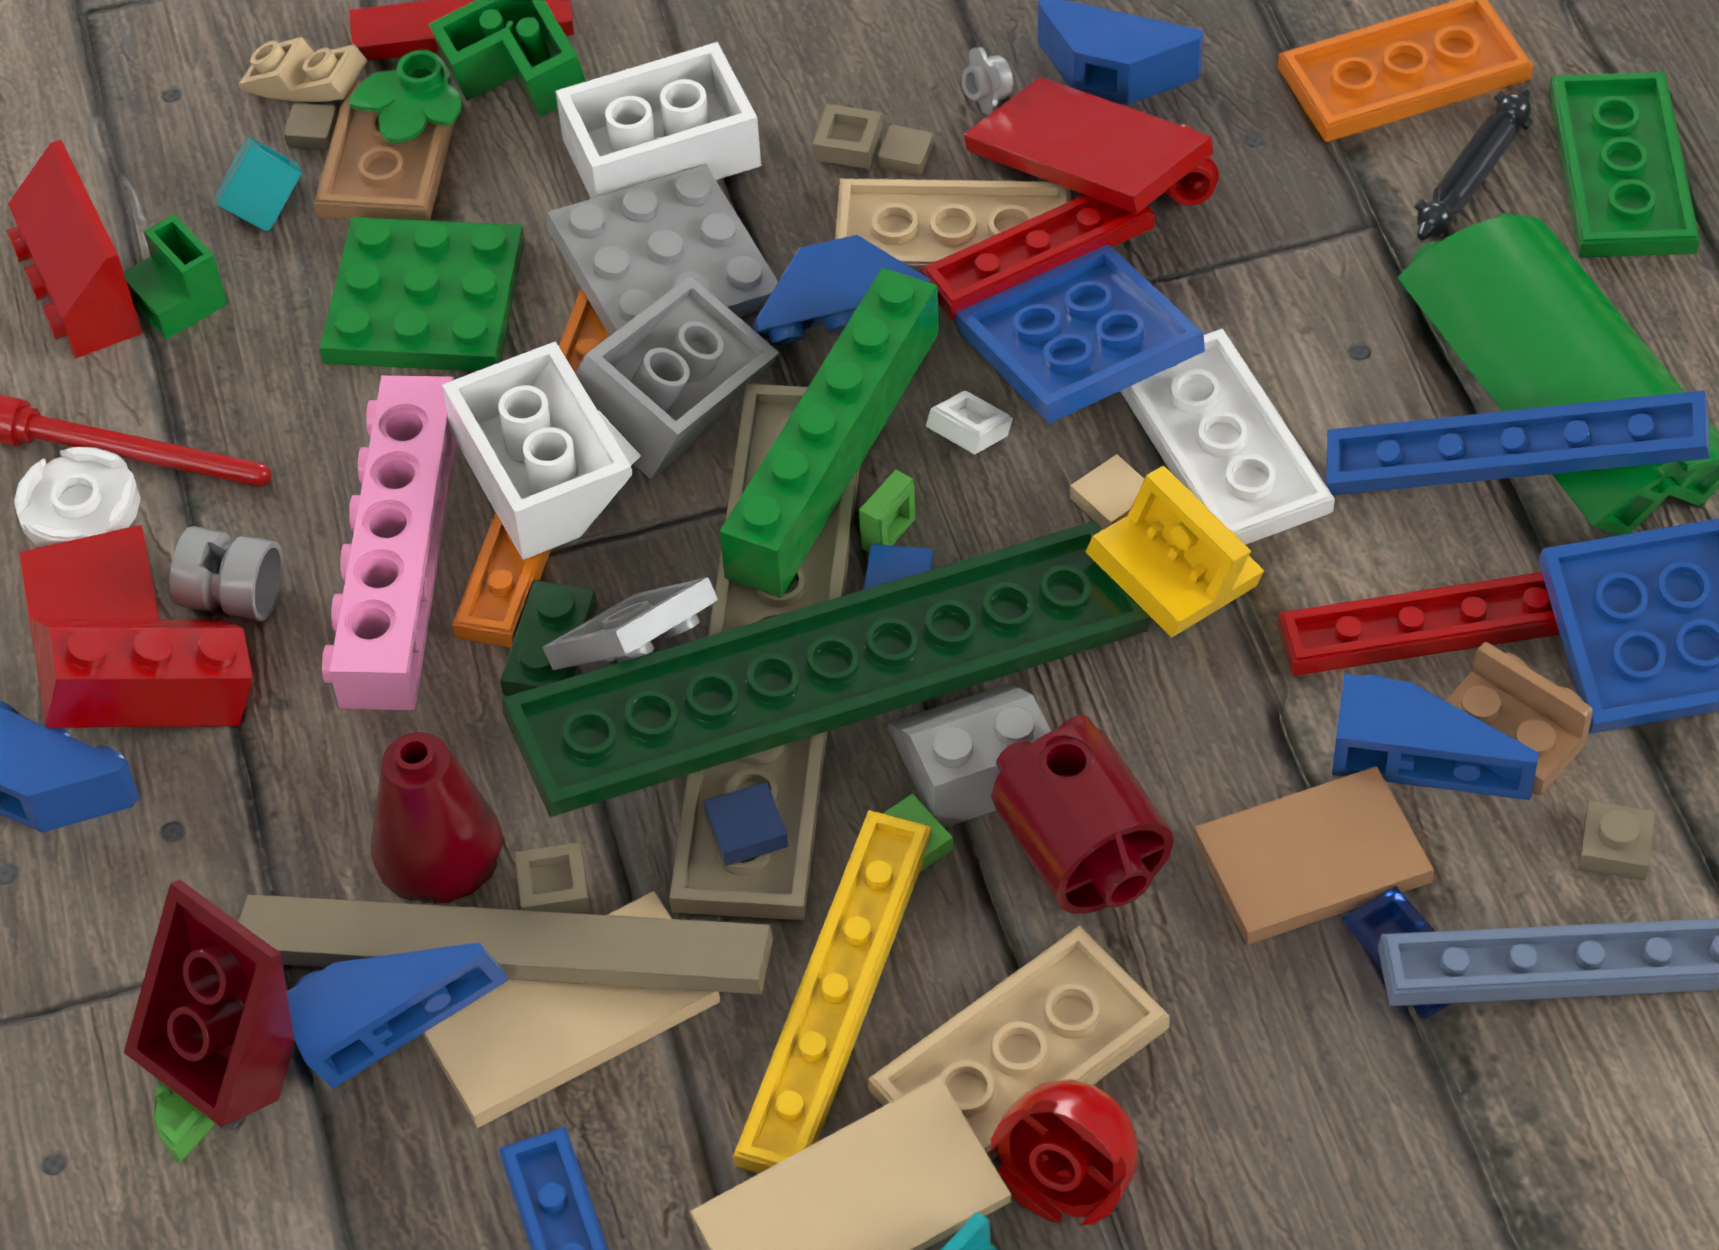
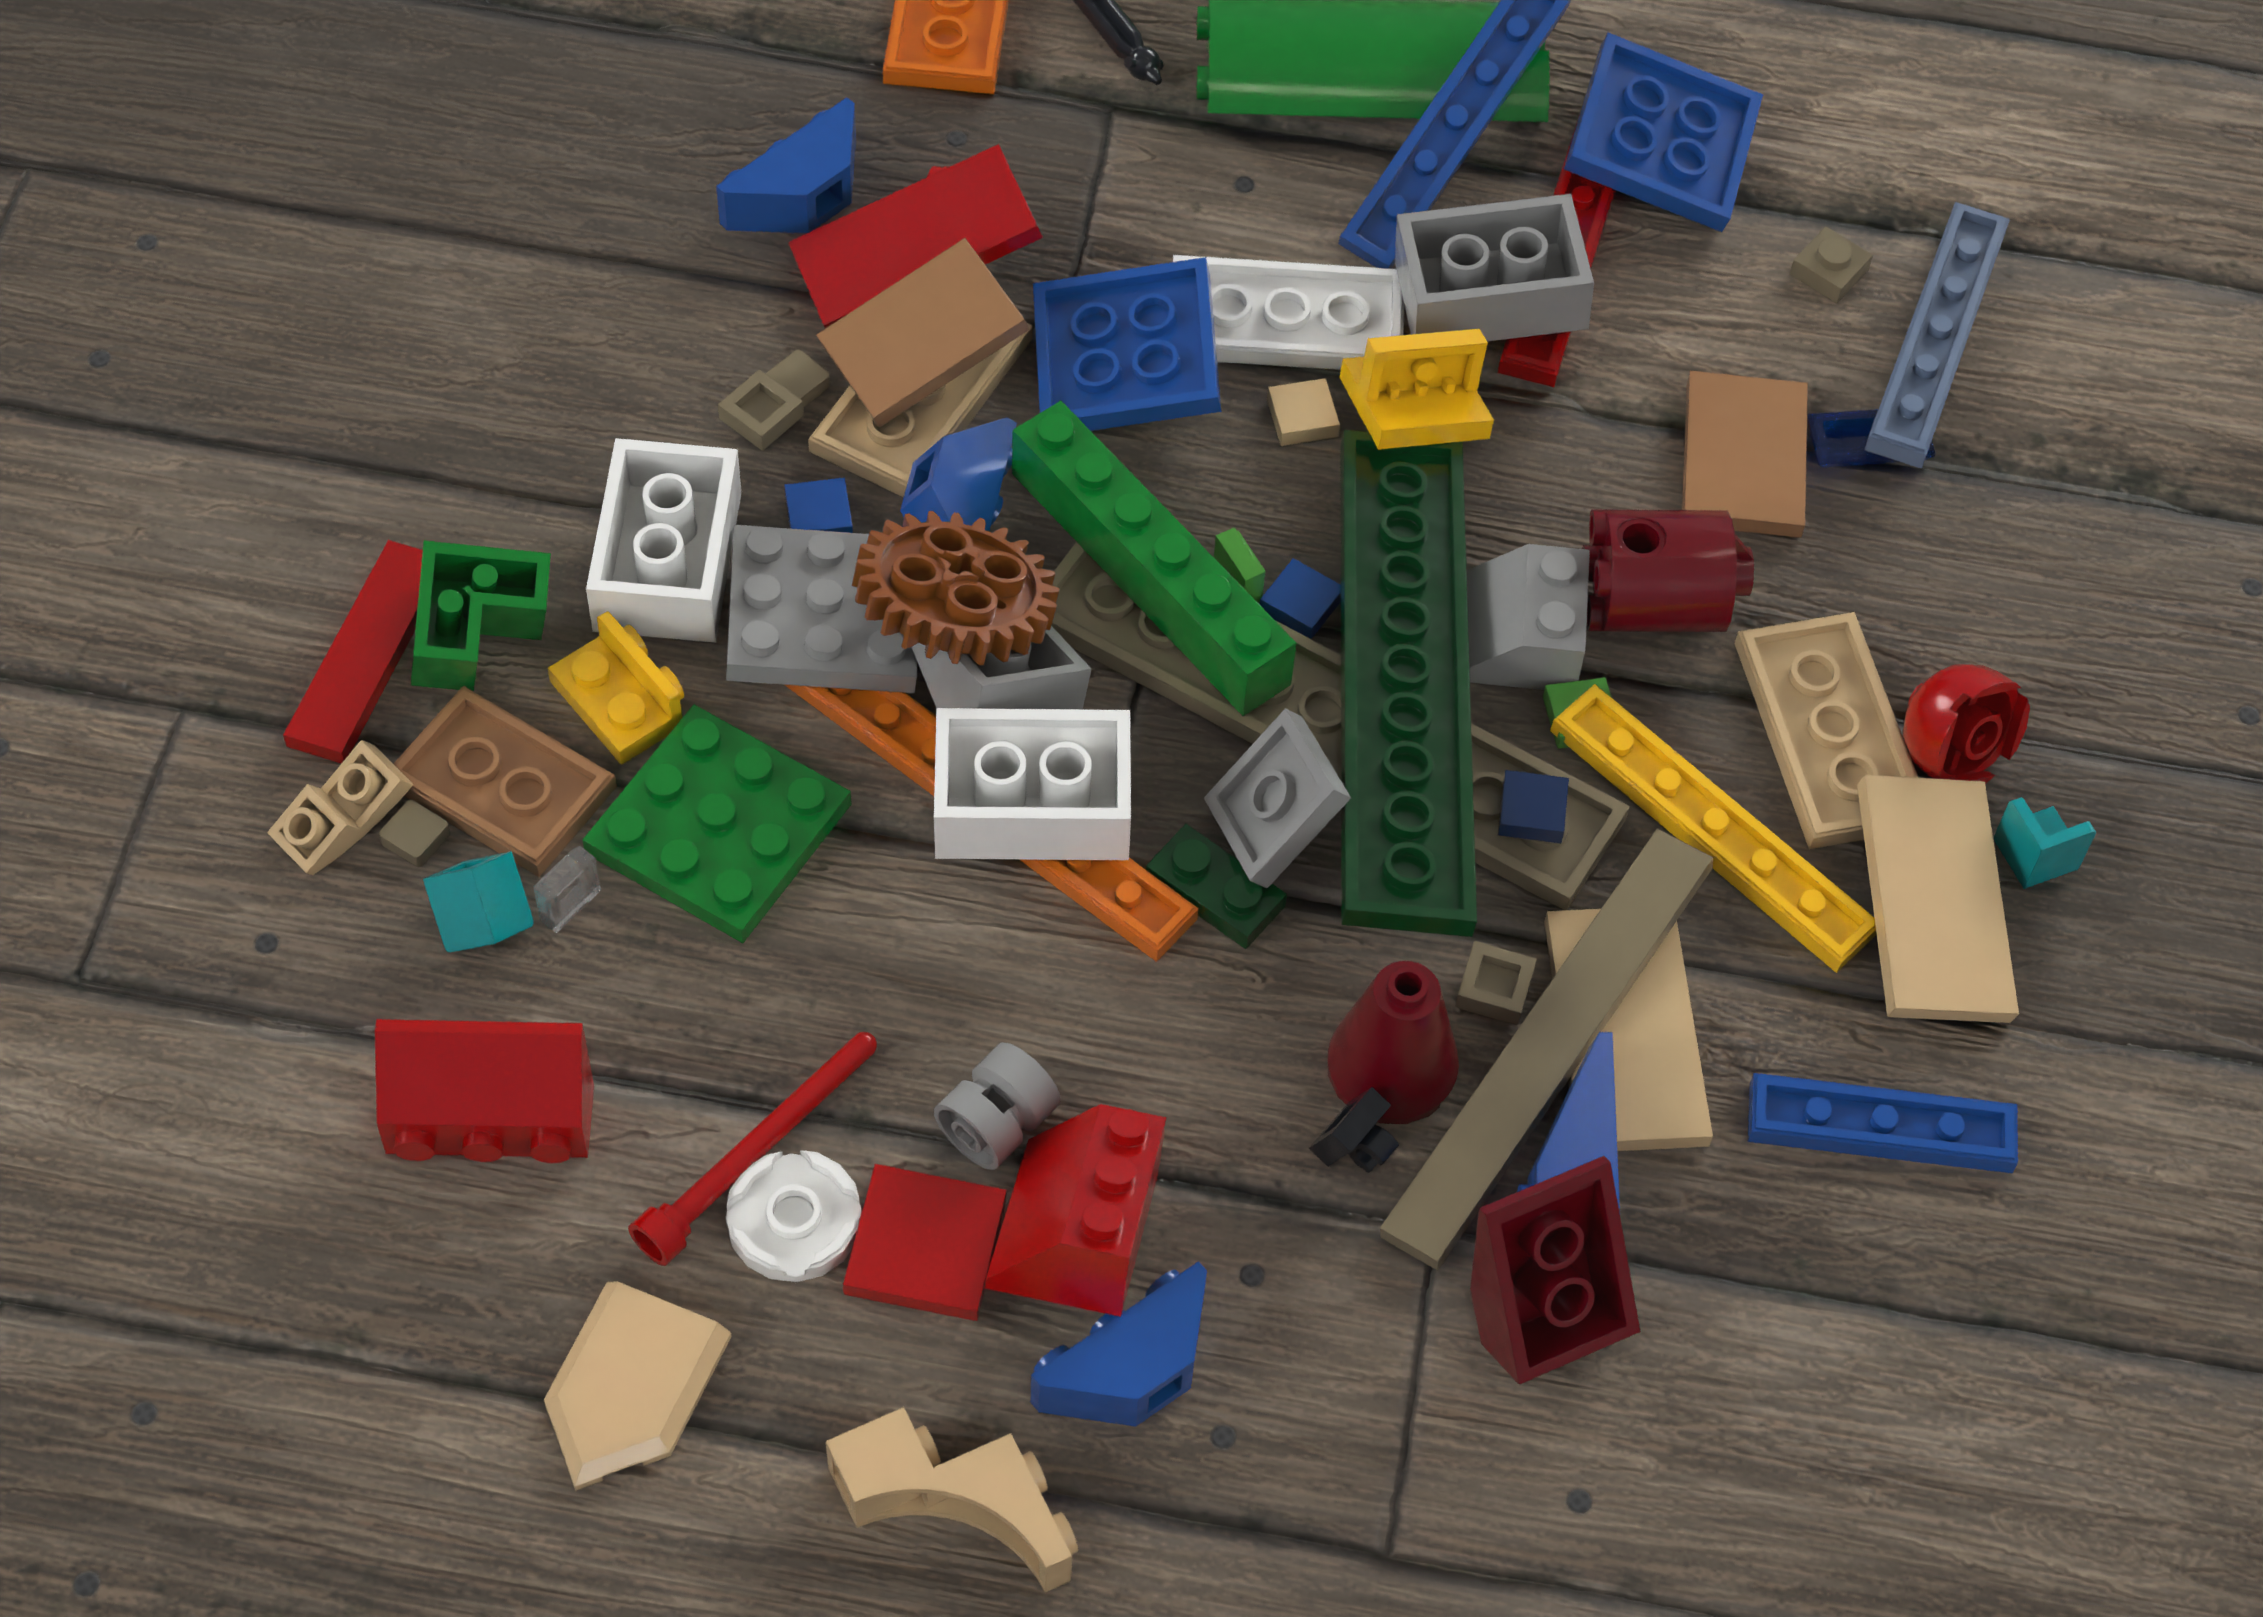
camera: 70 degrees left, 5 degrees up
(177, 280) = (571, 995): green piece -> none
(178, 1122) = (1590, 1379): bright green tile -> none
(296, 226) = (567, 888): none -> clear tile
(331, 835) = (1357, 1134): none -> black tile
(394, 547) = (1017, 924): bright pink brick -> none
(409, 96) = (472, 730): green plate -> none
(511, 176) = (619, 690): none -> yellow bracket
(645, 296) = (955, 588): none -> dark orange gear
(775, 220) = (819, 506): none -> blue tile
(969, 422) = (1167, 470): white tile -> none
(980, 185) = (922, 332): none -> medium nougat tile
(987, 79) = (768, 266): light grey plate -> none
(1032, 250) = (1011, 374): red tile -> none
(1347, 544) = (1495, 268): none -> light grey brick
(1426, 741) = (1681, 331): blue slope -> none
(1526, 708) = (1690, 266): medium nougat bracket -> none

